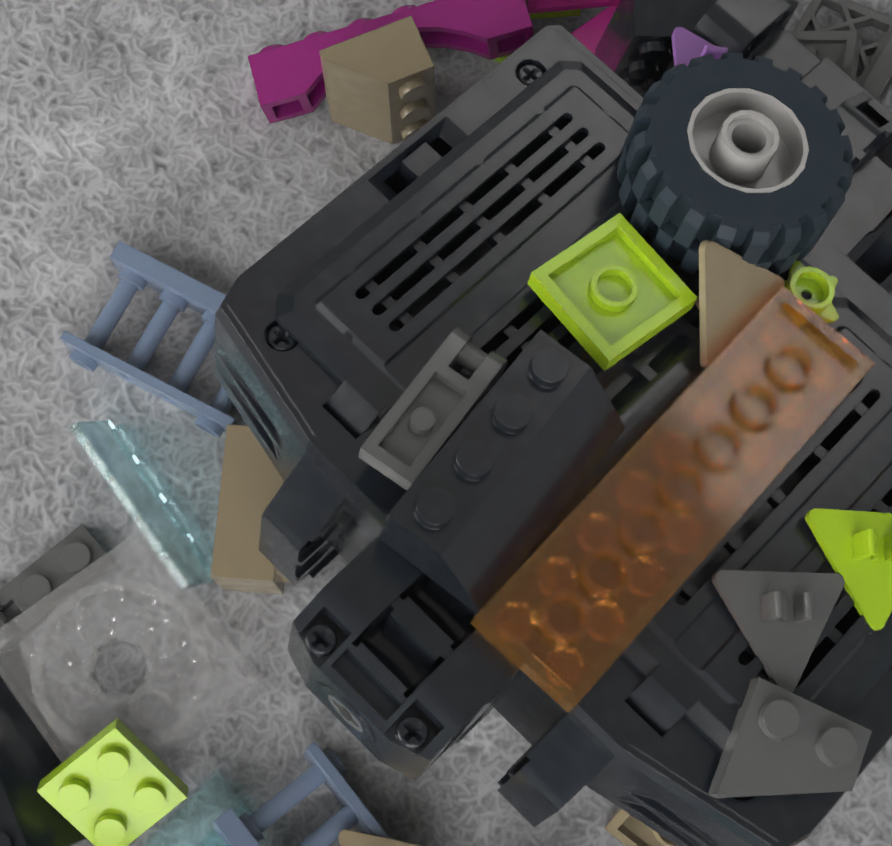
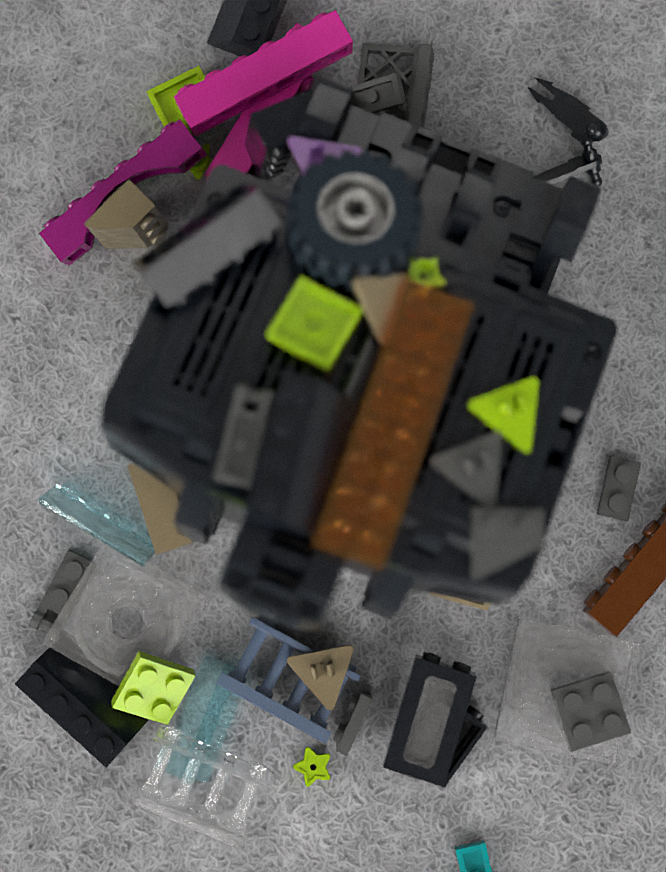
camera: 20 degrees left, 10 degrees up
(177, 294) = (61, 395): sand blue fence -> none
(499, 116) = (208, 244): none -> slope

